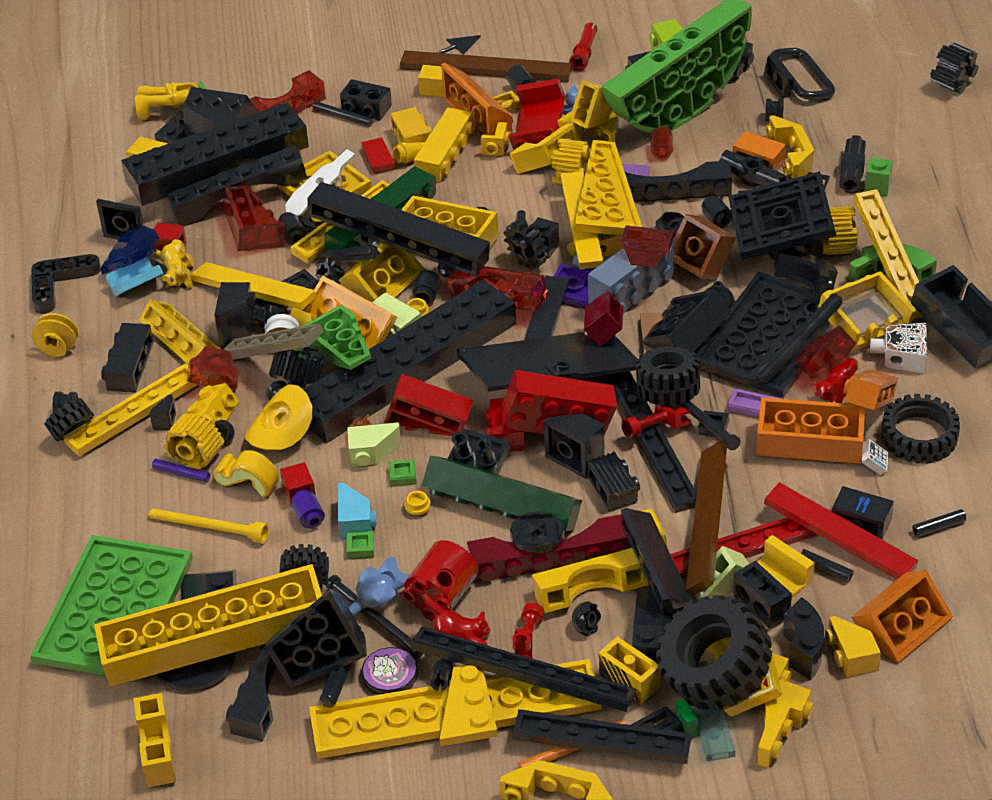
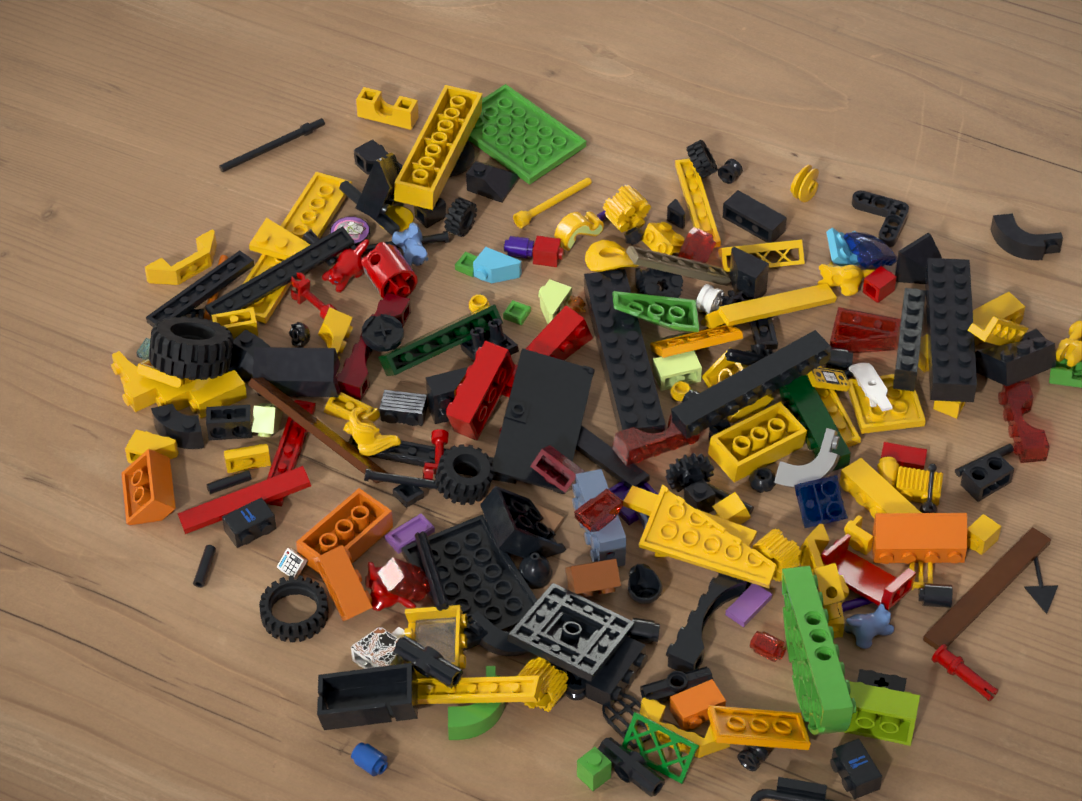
camera: 120 degrees right, 5 degrees up
(38, 184) = (1021, 243): none -> black arch
(216, 118) = (999, 331): none -> yellow fence
(431, 115) = (929, 506): none -> black hinge
(451, 175) = (819, 468): none -> light grey arch
(480, 166) = (820, 501): none -> clear blue slope
(541, 207) = (732, 509): none -> yellow brick
(673, 484) = (366, 434): none -> yellow hair
(751, 107) = (758, 727): none -> light orange tile
(823, 151) = (675, 739): none -> green window
(899, 283) = (428, 661): none -> black piece

